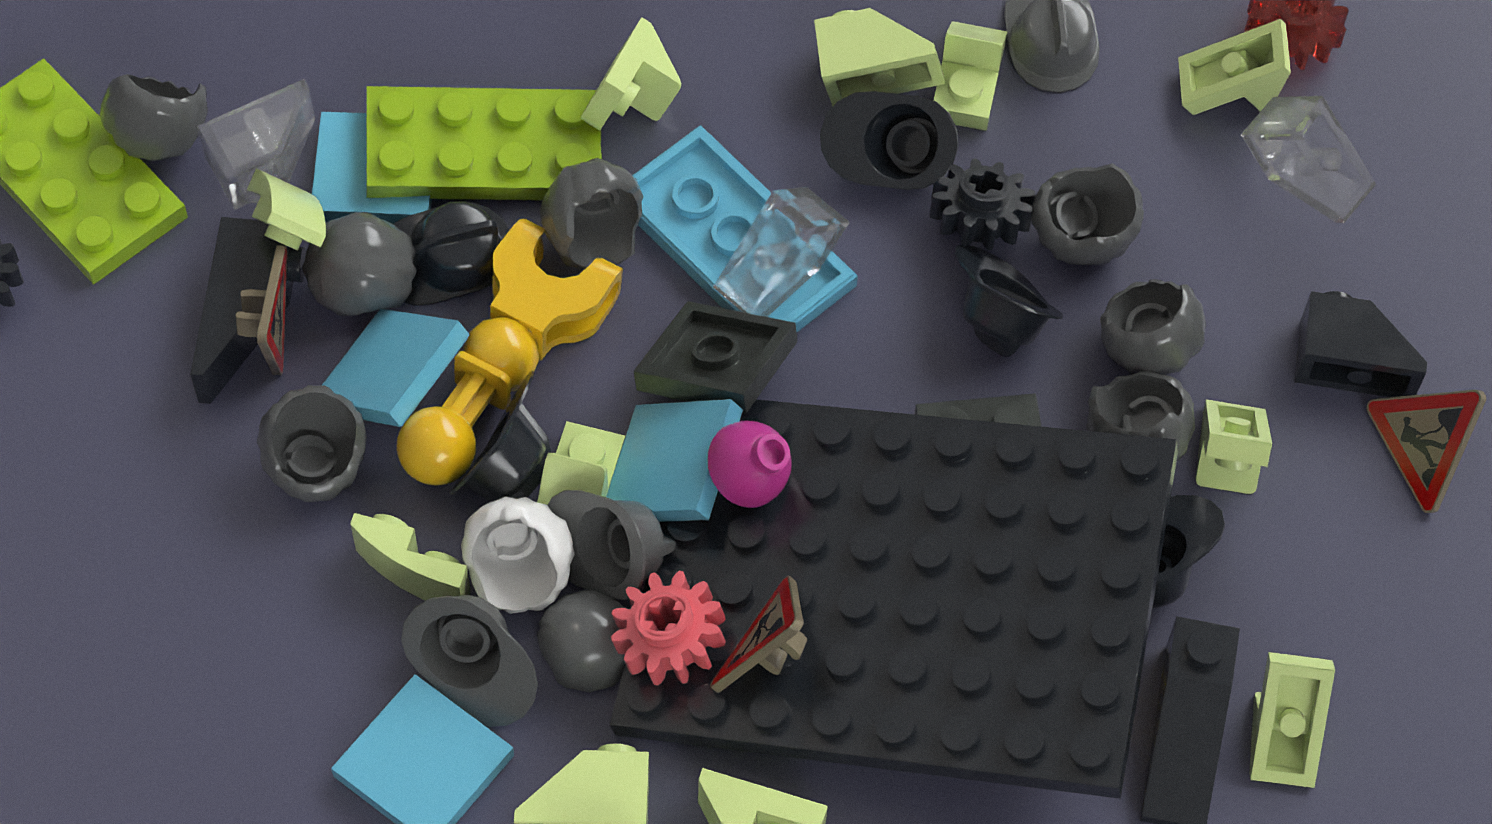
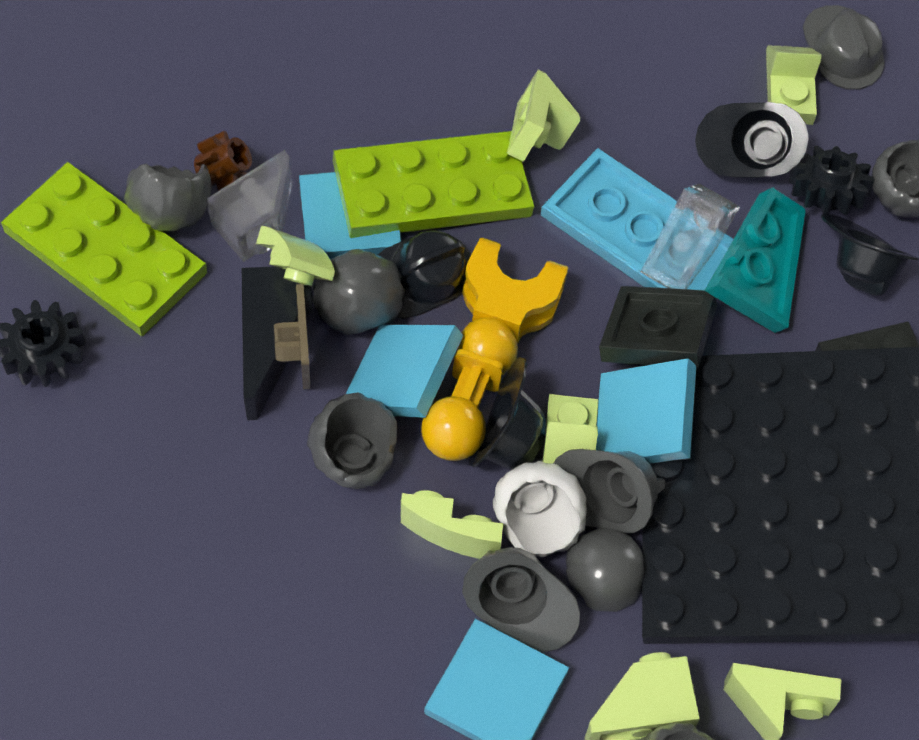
camera: 10 degrees left, 0 degrees up
(230, 79) = (224, 157): none -> reddish brown gear
(592, 213) = (534, 226): dark grey hair -> none
(668, 628) = (698, 559): coral gear -> none
(749, 463) = (716, 406): dark pink brick -> none
(773, 628) = (768, 541): dark tan piece -> none
(868, 294) = (762, 262): none -> teal wing
(873, 54) = (721, 75): yellowish green slope -> none

